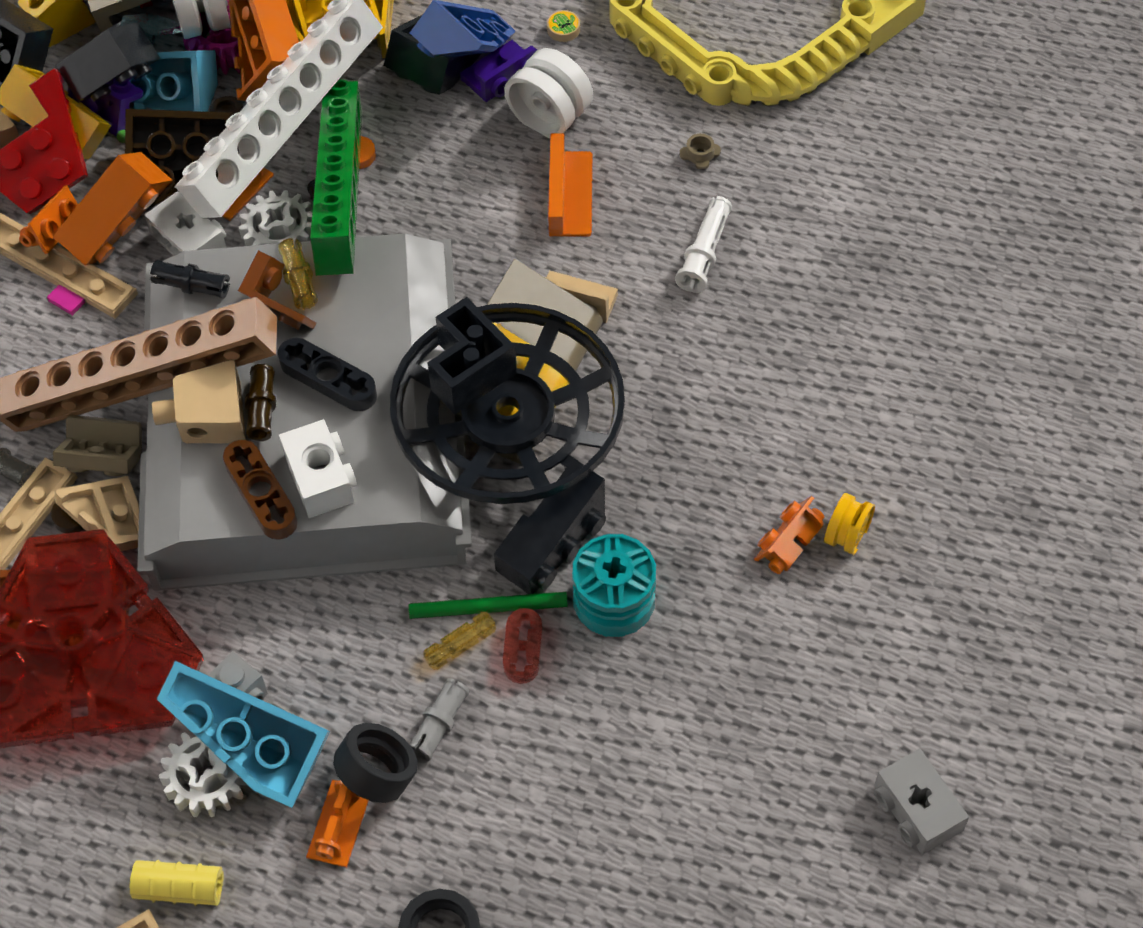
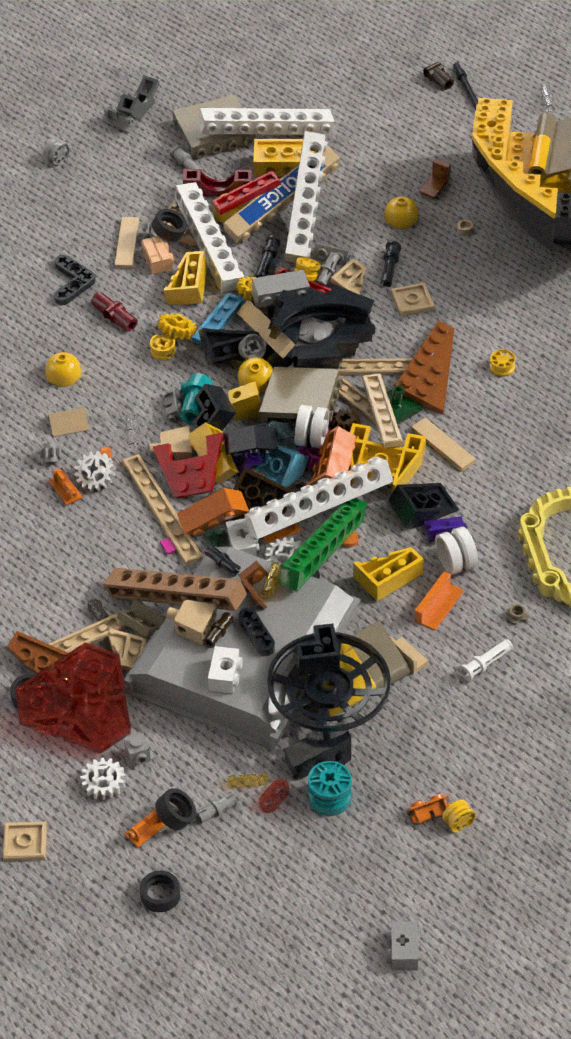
camera: 30 degrees right, 10 degrees down
(48, 221) = (180, 504): orange hinge -> none
(140, 248) = (216, 537): none -> clear green tile
(176, 882) = (63, 816): light yellow axle -> none
(254, 738) = (131, 775): medium azure wedge -> none
(260, 505) = (198, 674): reddish brown beam -> none
(459, 30) = (432, 499): blue wedge -> none
(463, 177) = (388, 573): none -> yellow wedge
(487, 604) = (270, 771): green bar -> none
(563, 26) = (493, 521): tile -> none

